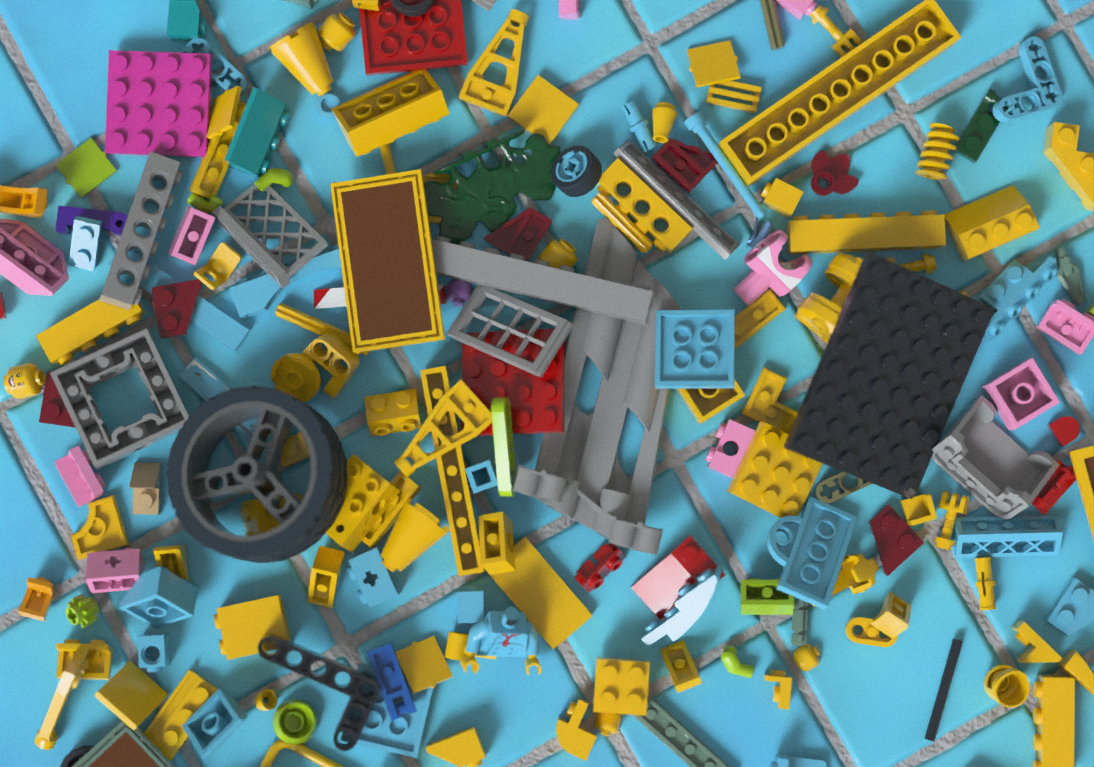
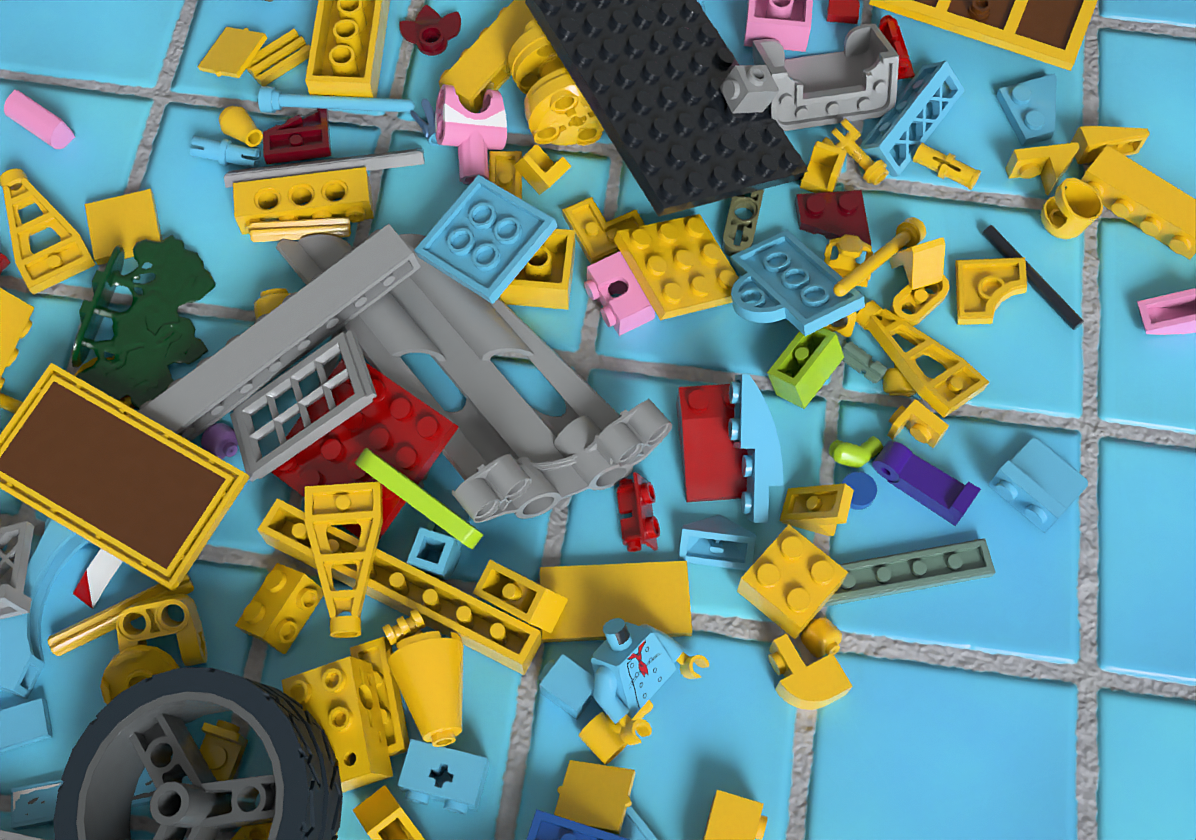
camera: 50 degrees left, 20 degrees down
(428, 499) = (404, 627): none -> yellow hinge
(520, 234) = (219, 321): dark red wing -> none
(576, 171) = (208, 231): black wheel -> none
(617, 624) = (717, 543): none -> medium azure slope
(712, 681) = (864, 489): none -> blue tile
(746, 717) = (925, 482): none -> dark purple leg
(780, 333) = (540, 169): none -> yellow panel
(781, 197) = (412, 79): yellow brick -> none
(819, 693) = (945, 391): none -> yellow plate
(912, 594) = (908, 234): none -> yellow piece
(912, 665) = (985, 285): none -> yellow tile
(930, 427) = (749, 88): none -> light grey brick

